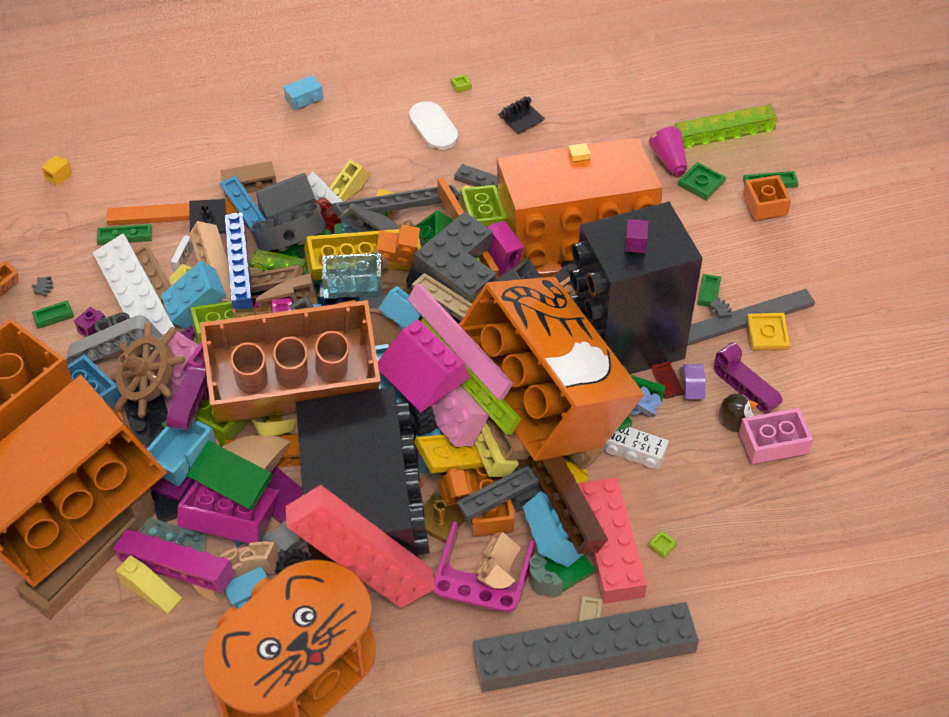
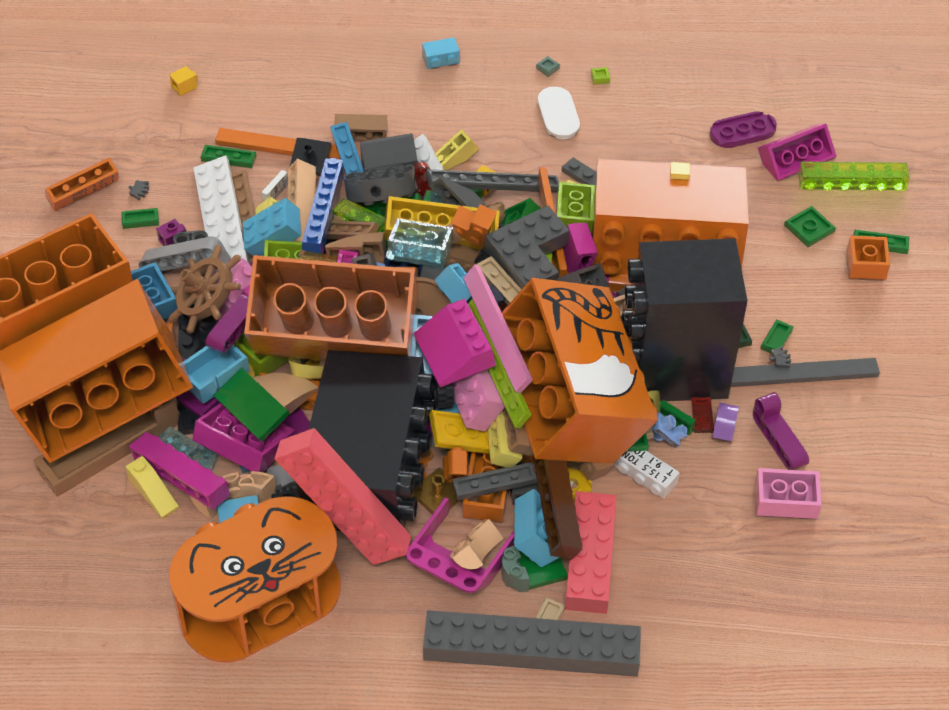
camera: 15 degrees right, 0 degrees up
(408, 84) = (548, 66): none -> sand green tile
(521, 115) = (649, 120): black hinge -> none
(609, 105) = (742, 129): none -> magenta tile
(636, 236) = (687, 265): magenta brick -> none
(662, 544) = (641, 569): lime tile -> none
(670, 149) = (786, 187): dark pink cone -> none
(671, 108) = (807, 145): none -> dark pink slope
(734, 409) = (757, 456): dark brown piece -> none
(768, 331) = (820, 391): yellow tile -> none

